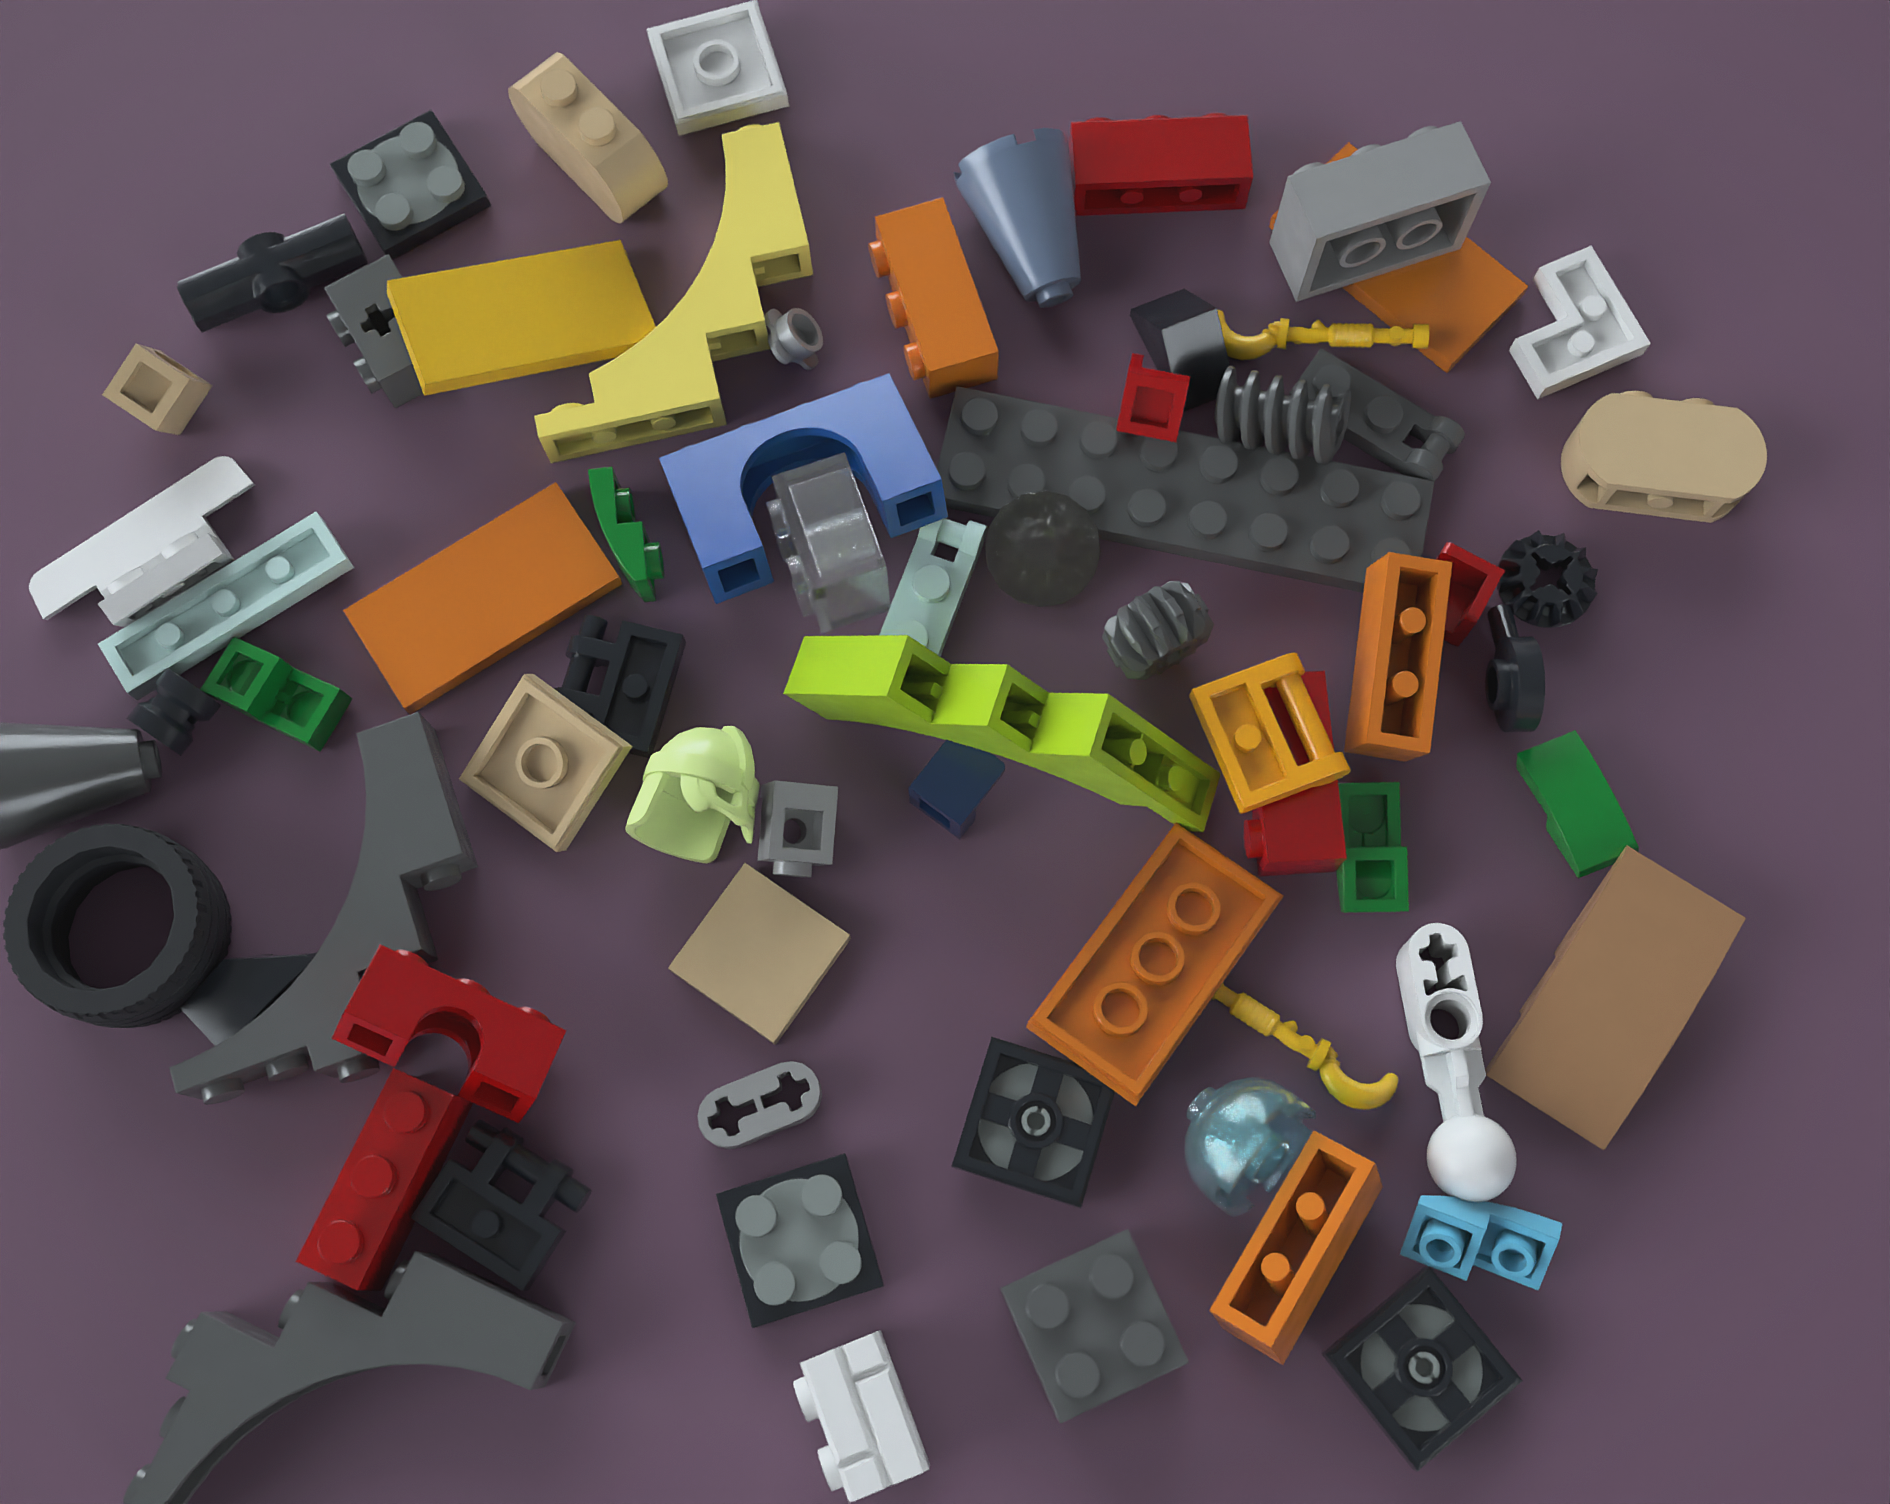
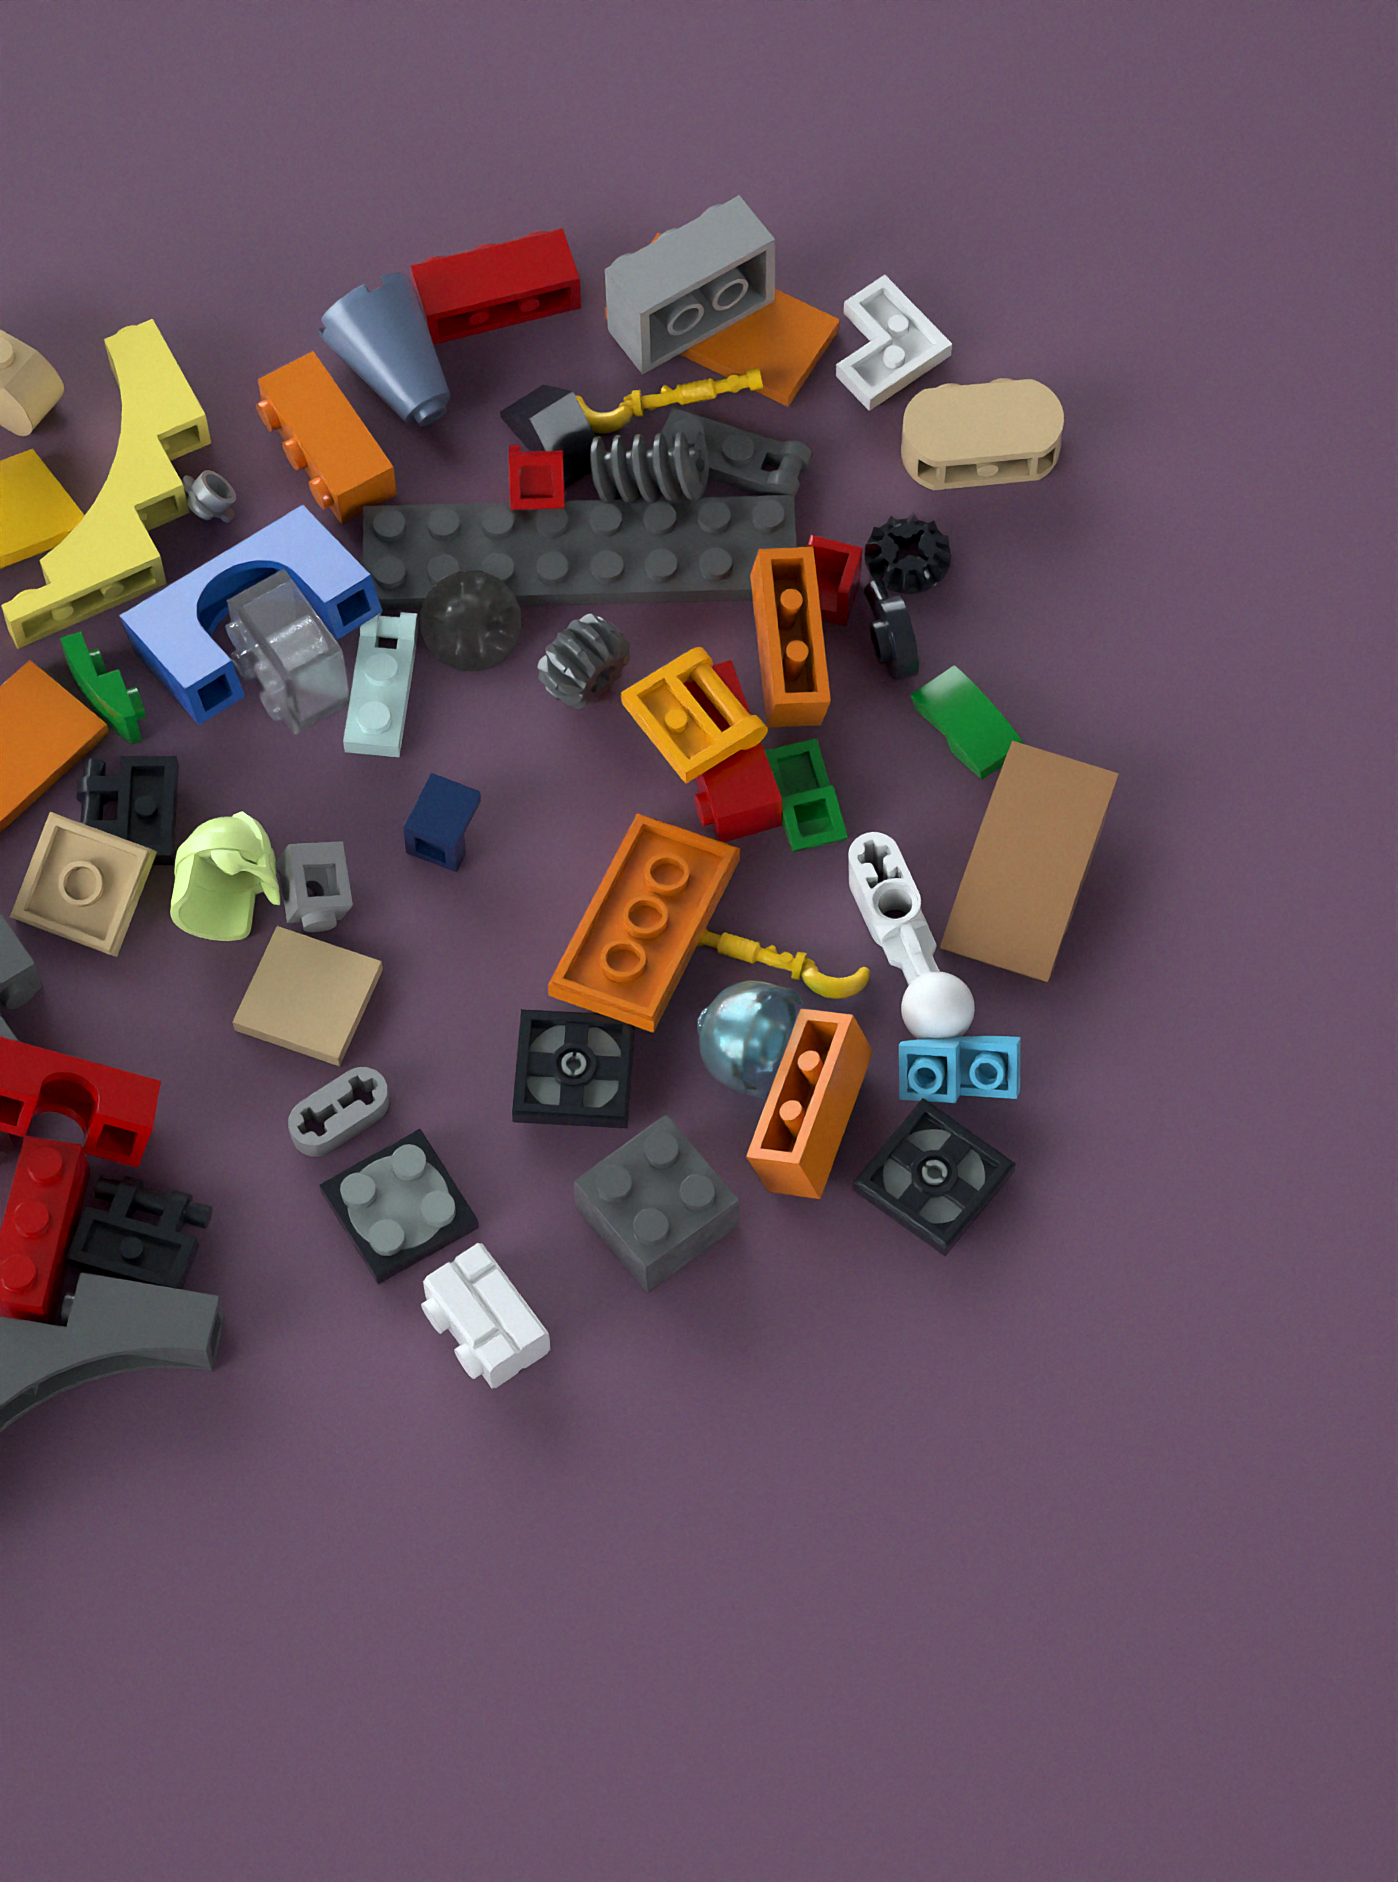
camera: 15 degrees left, 10 degrees down
(717, 67) = (81, 285): white plate -> none
(1002, 712) = (461, 744): lime arch -> none

